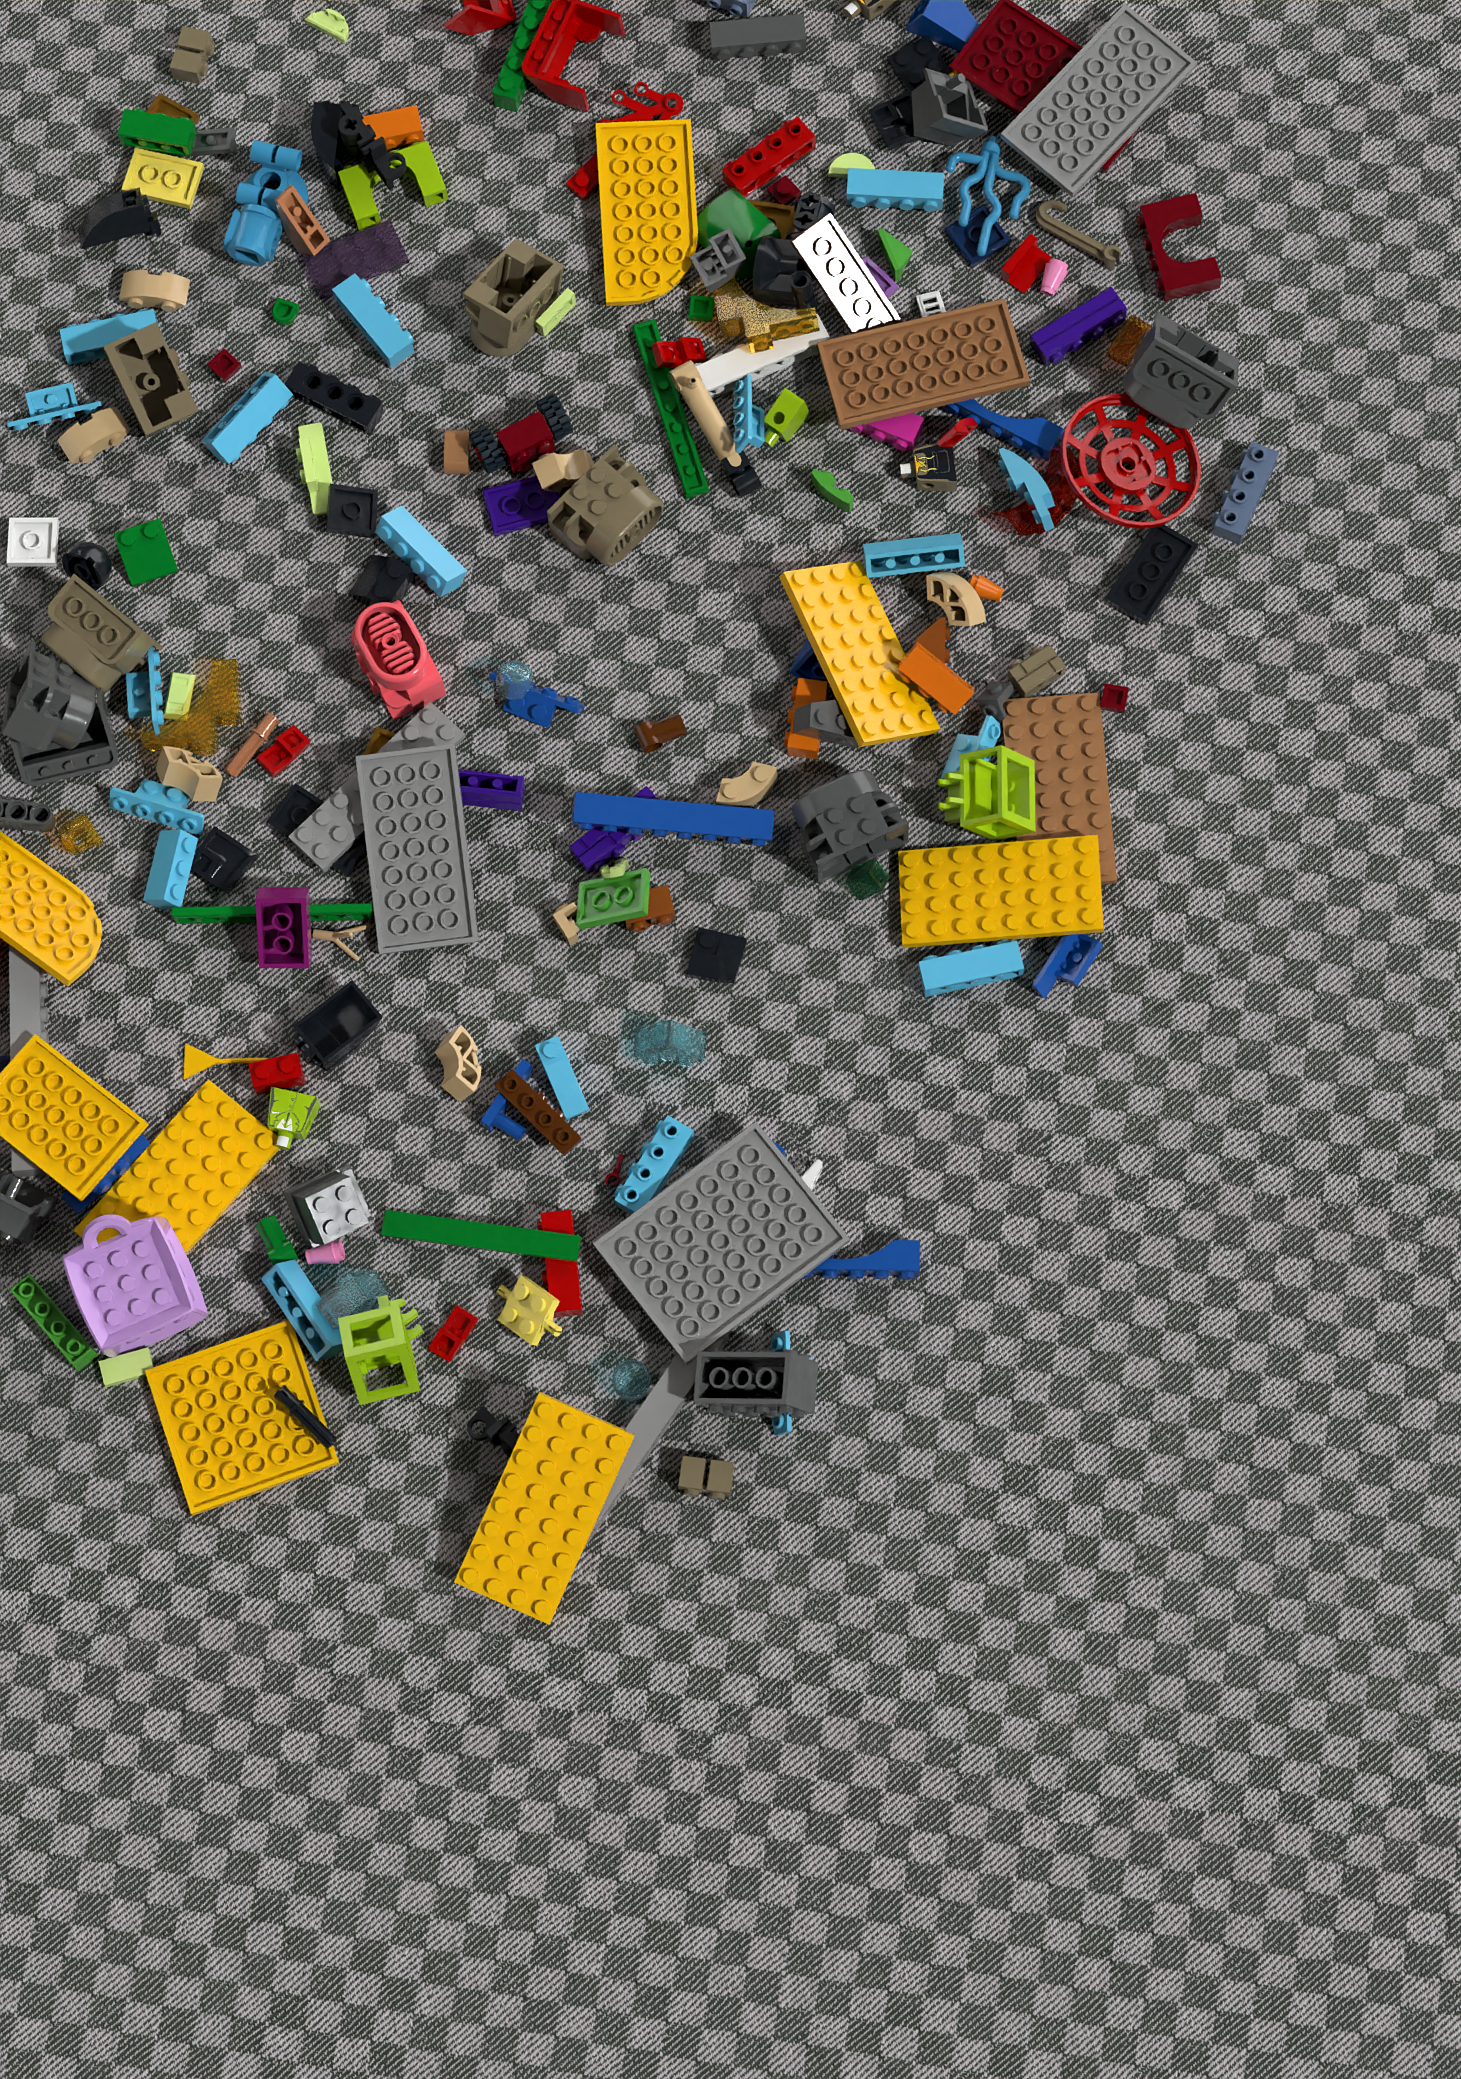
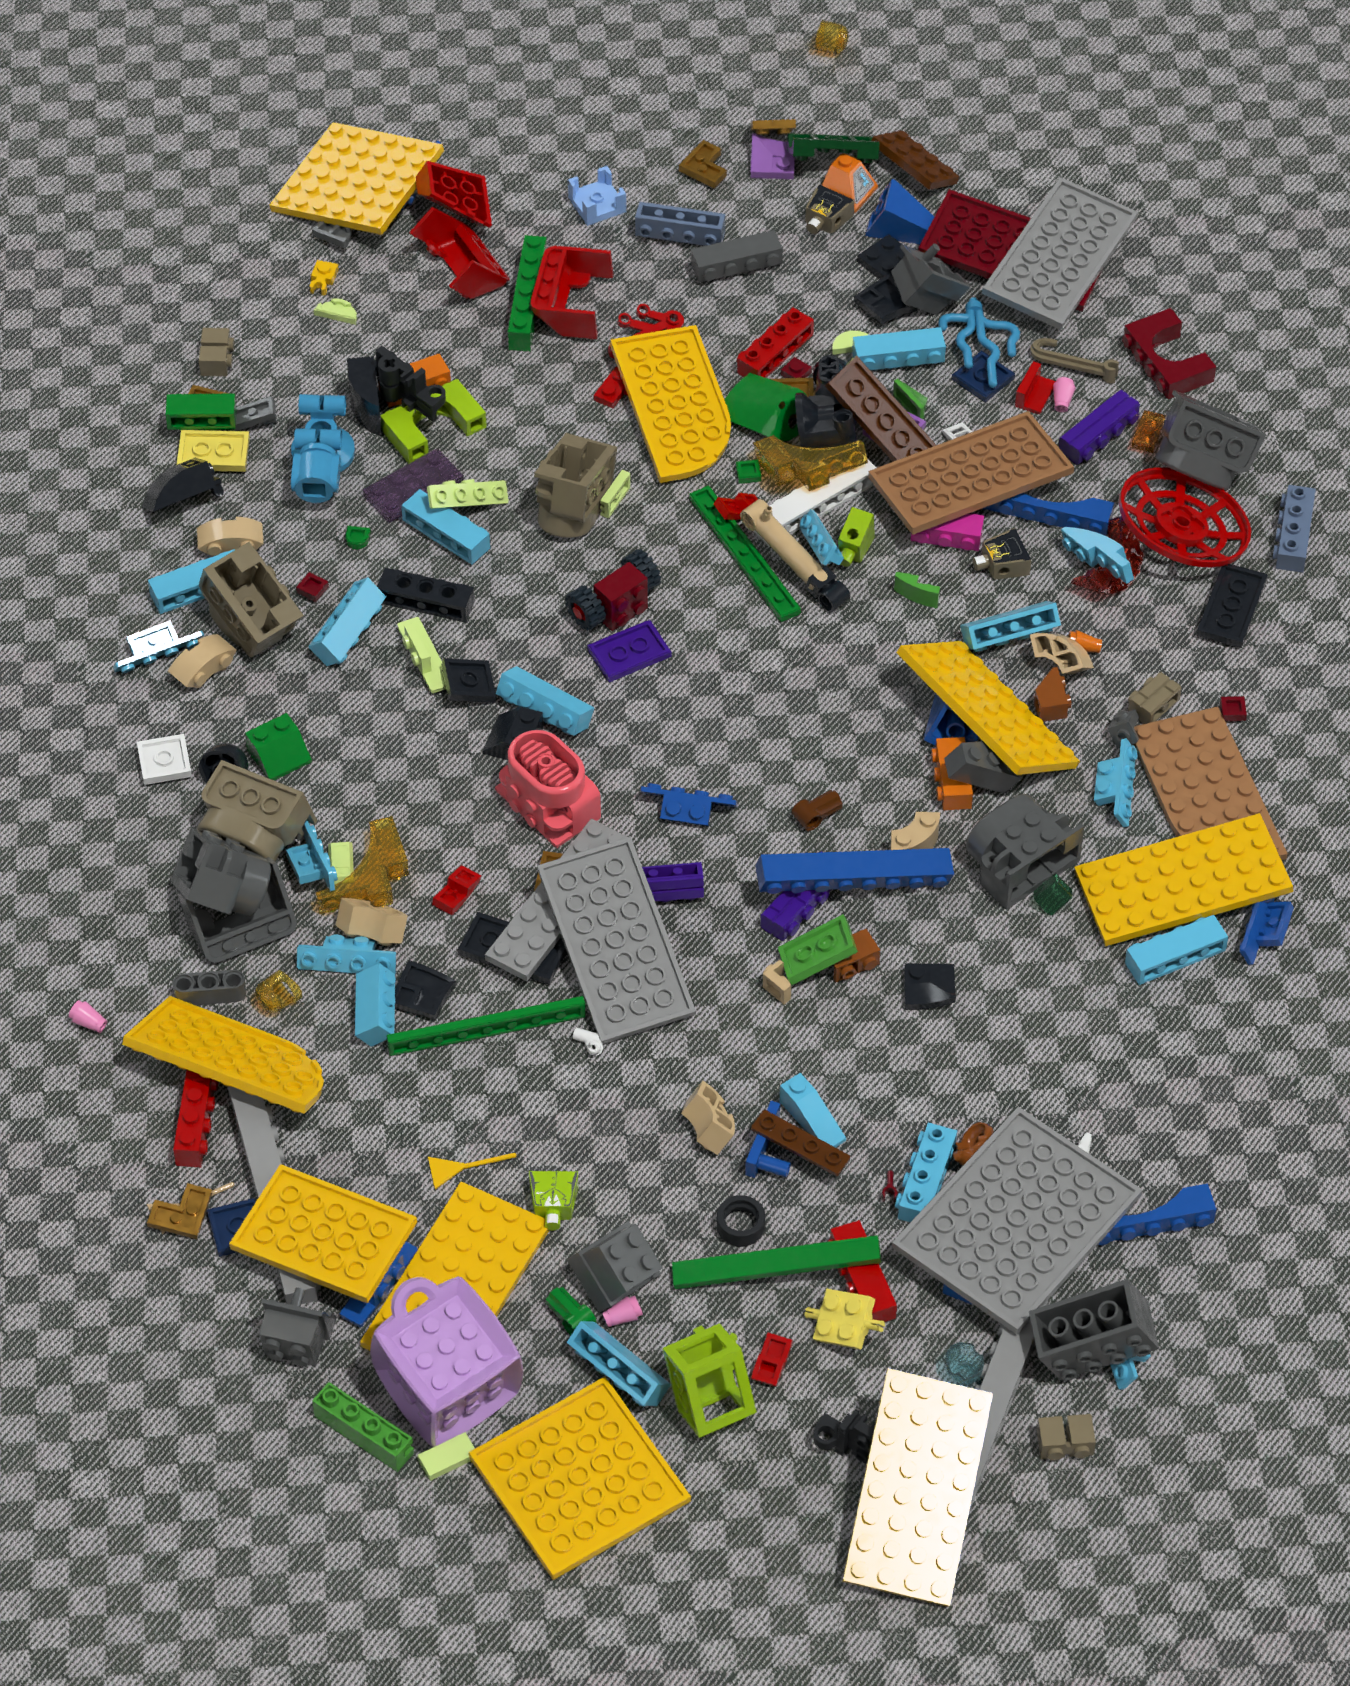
camera: 20 degrees left, 20 degrees down
(252, 744) = (429, 881): nougat axle -> none
(277, 1072) = (531, 1156): red brick -> none
(283, 927) = (504, 1028): magenta brick -> none
(300, 223) = (357, 456): nougat slope -> none
(305, 1417) = (637, 1453): black axle -> none
(334, 936) = (551, 1036): tan plant -> none
(336, 1026) = (578, 1109): black piece -> none
(352, 1296) = (662, 1331): clear light blue brick -> none
(371, 949) = (590, 1039): none -> white arm
(401, 287) = (467, 494): none -> yellowish green bracket
(451, 1163) = (746, 1204): none -> black tyre
(457, 452) = (555, 618): medium nougat beam -> none
(513, 680) = (667, 785): clear light blue hair -> none
(562, 470) = (664, 613): tan brick -> none
(605, 511) = (711, 637): dark tan brick -> none
(617, 870) = (813, 923): yellowish green tile -> none
(669, 1042) = (909, 1058): clear light blue brick -> none
(705, 1144) = (972, 1141): none -> dark orange hair
(719, 261) = (758, 425): dark grey slope -> none
(935, 679) = (1065, 716): orange brick -> none
(957, 432) = (1020, 520): red slope -> none
(991, 797) = (1156, 804): lime piece -> none

